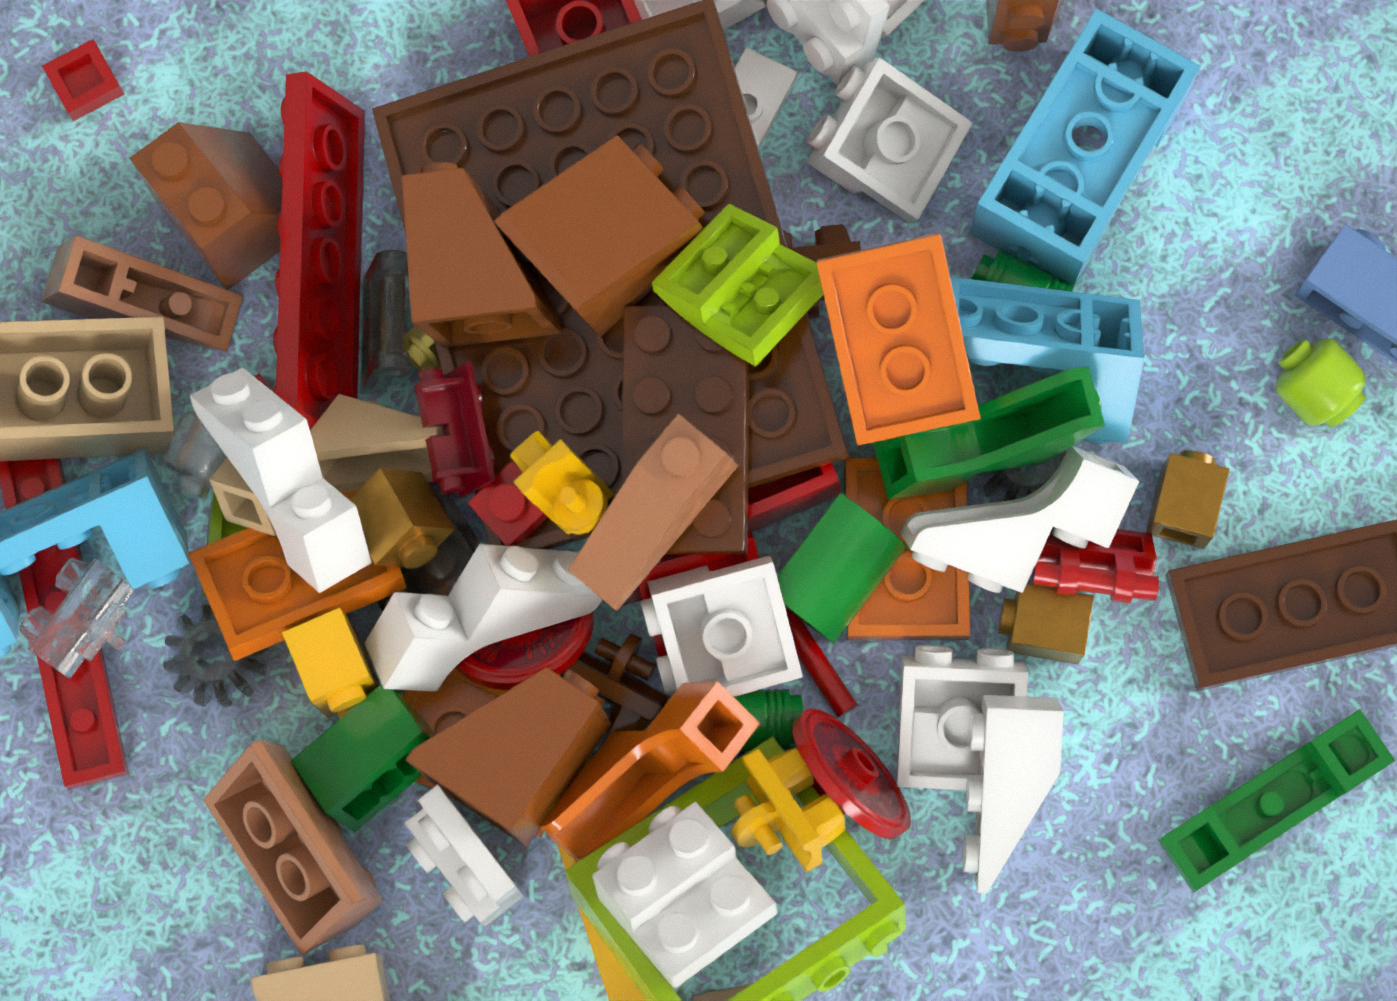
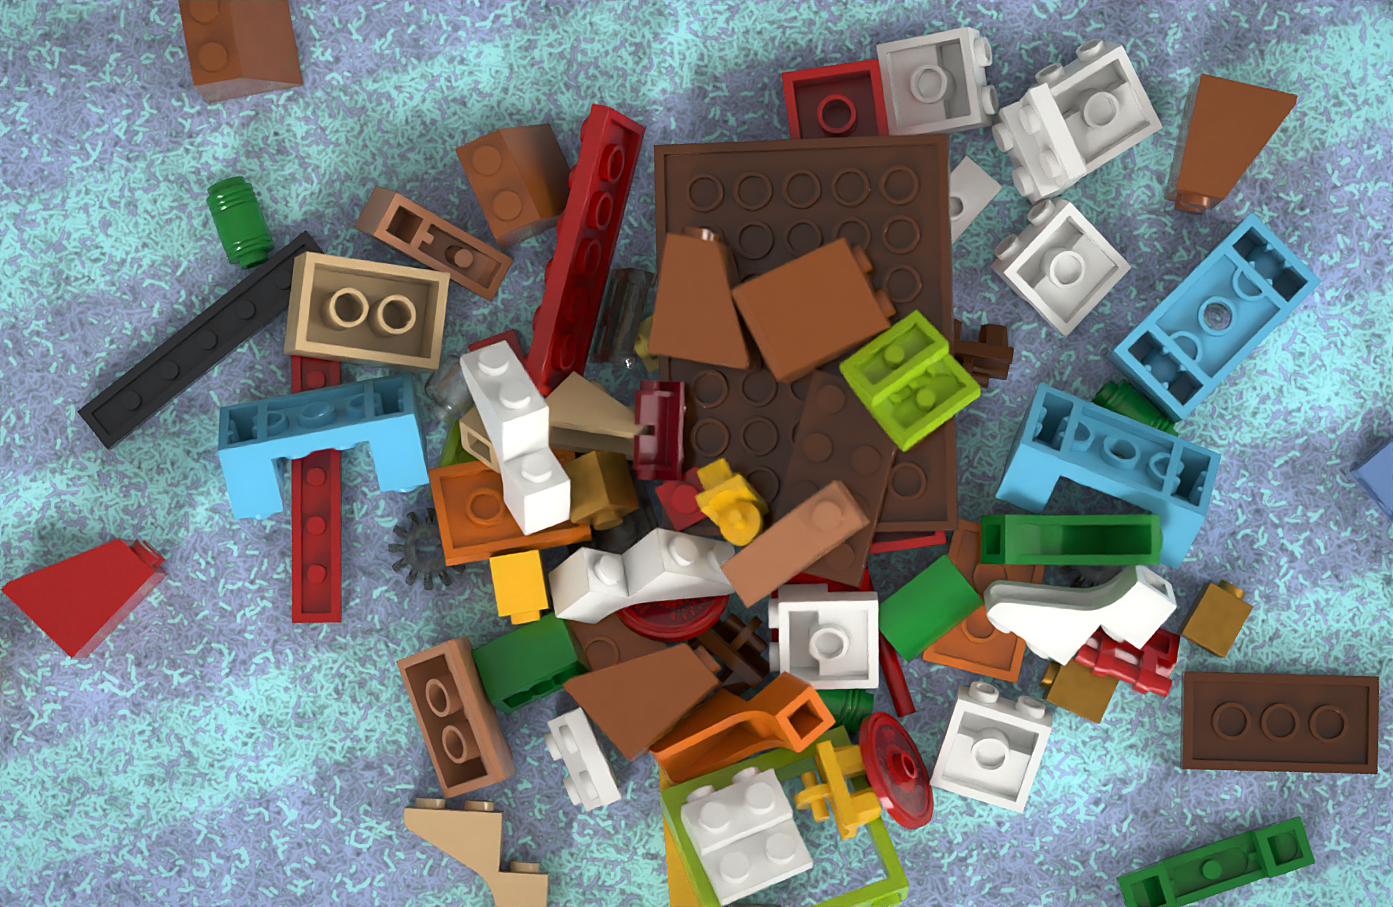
camera: 10 degrees right, 10 degrees up
(83, 80) = (425, 46): red plate -> none
(83, 618) = (337, 501): clear hips -> none
(898, 339) = (1019, 455): orange plate -> none
(1017, 769) = (1022, 801): white slope -> none
(1320, 382) = (1346, 552): lime head -> none

